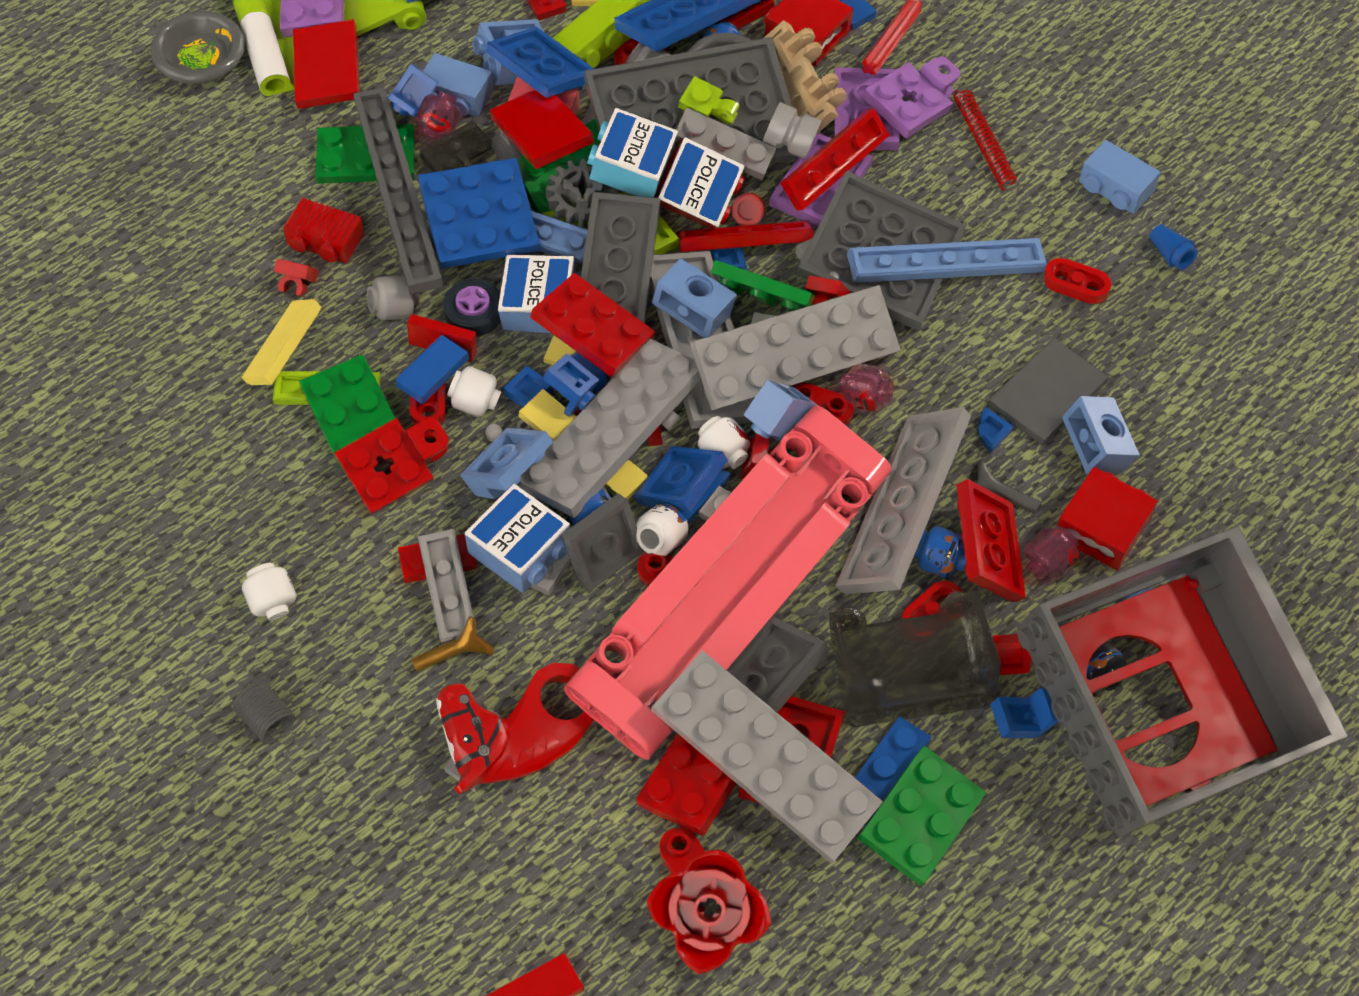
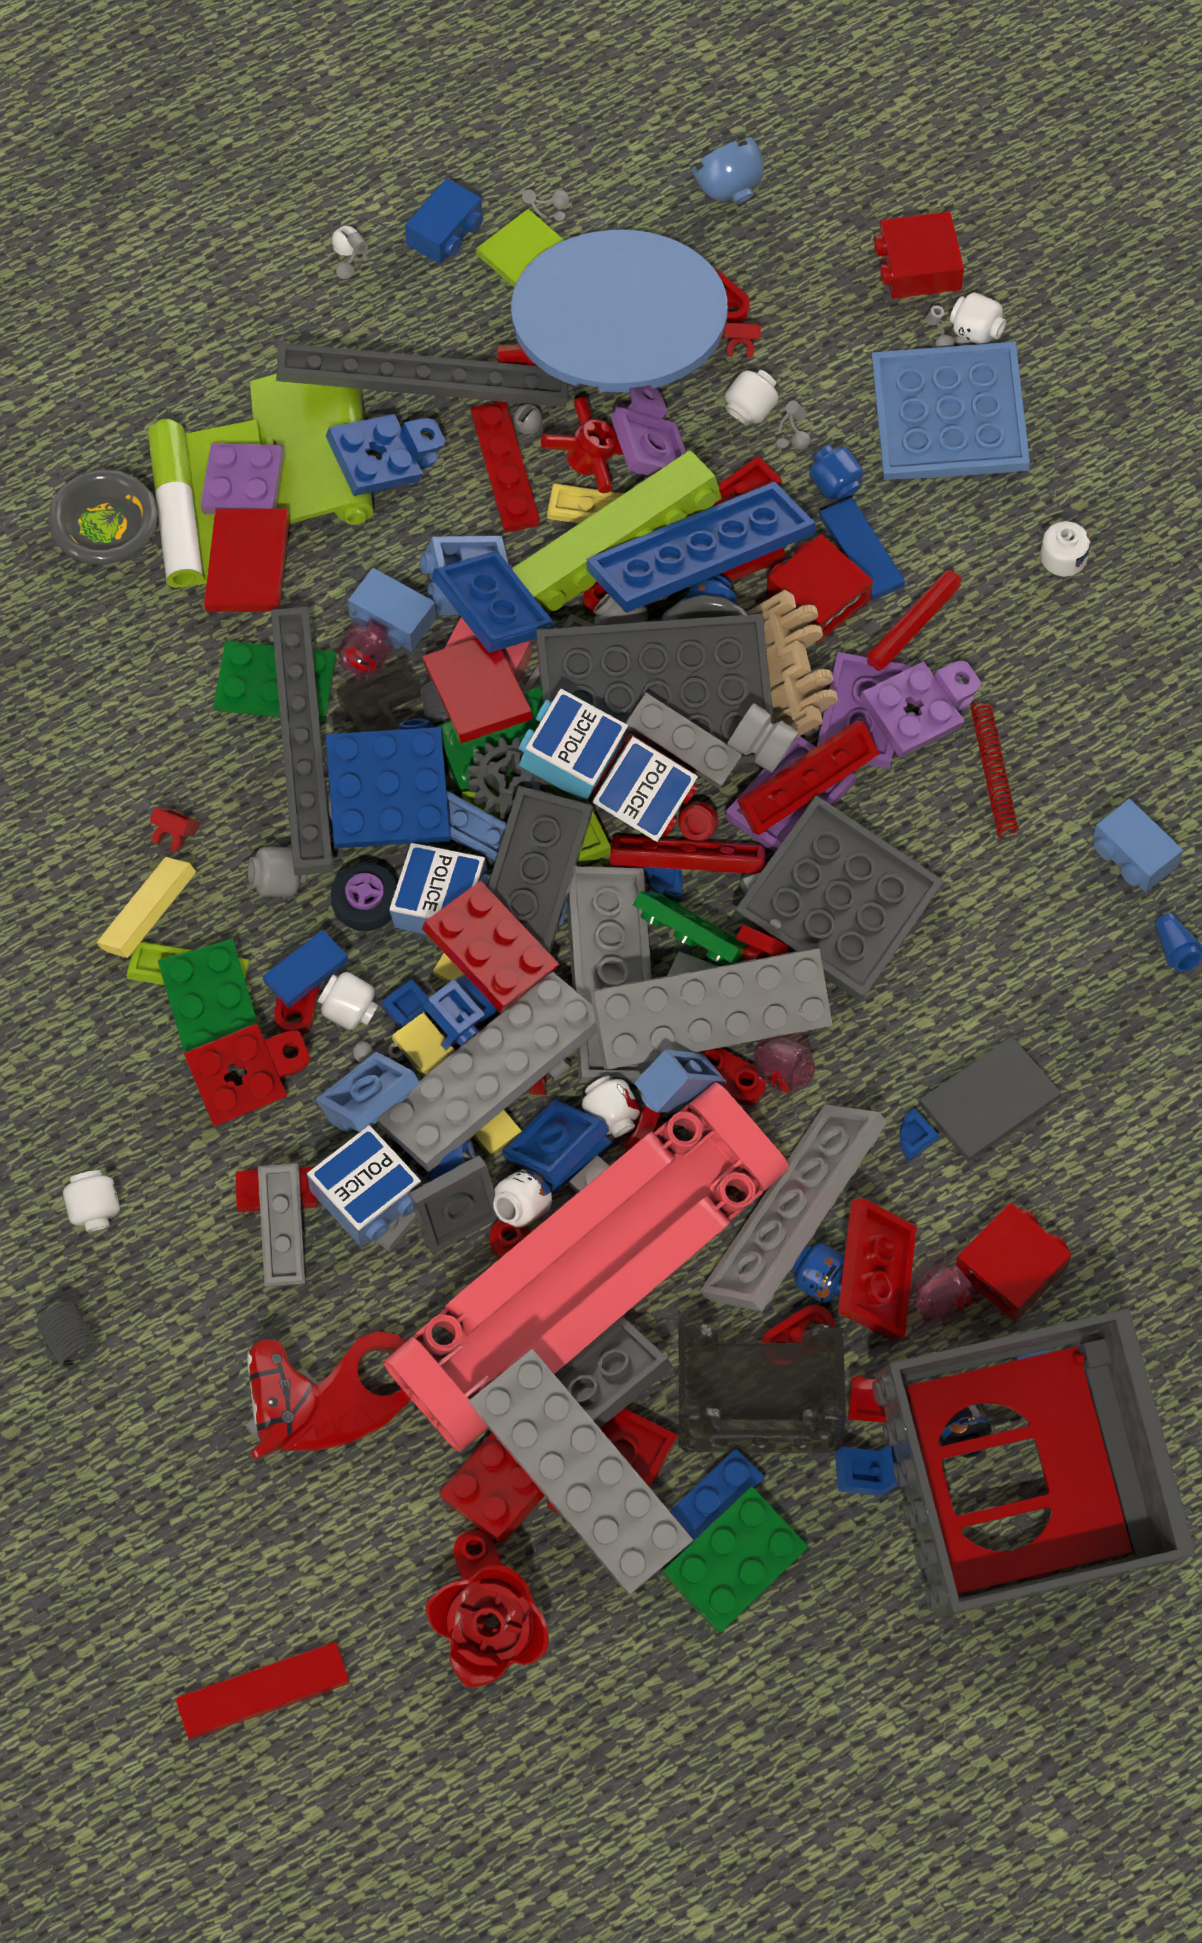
camera: 10 degrees right, 5 degrees up
(323, 231) = (212, 776): red brick -> none
(411, 91) = (337, 616): bracket -> none
(425, 331) = (309, 921): red tile -> none
(466, 642) = (291, 1291): pearl gold piece -> none
(694, 298) = (614, 950): medium blue brick -> none
(707, 101) = (669, 685): lime plate -> none
(946, 260) = (910, 923): medium blue tile -> none
(988, 481) = (895, 1199): dark grey piece -> none
(1077, 280) = (1058, 967): red plate -> none
(1100, 434) = (1031, 1164): medium blue brick -> none

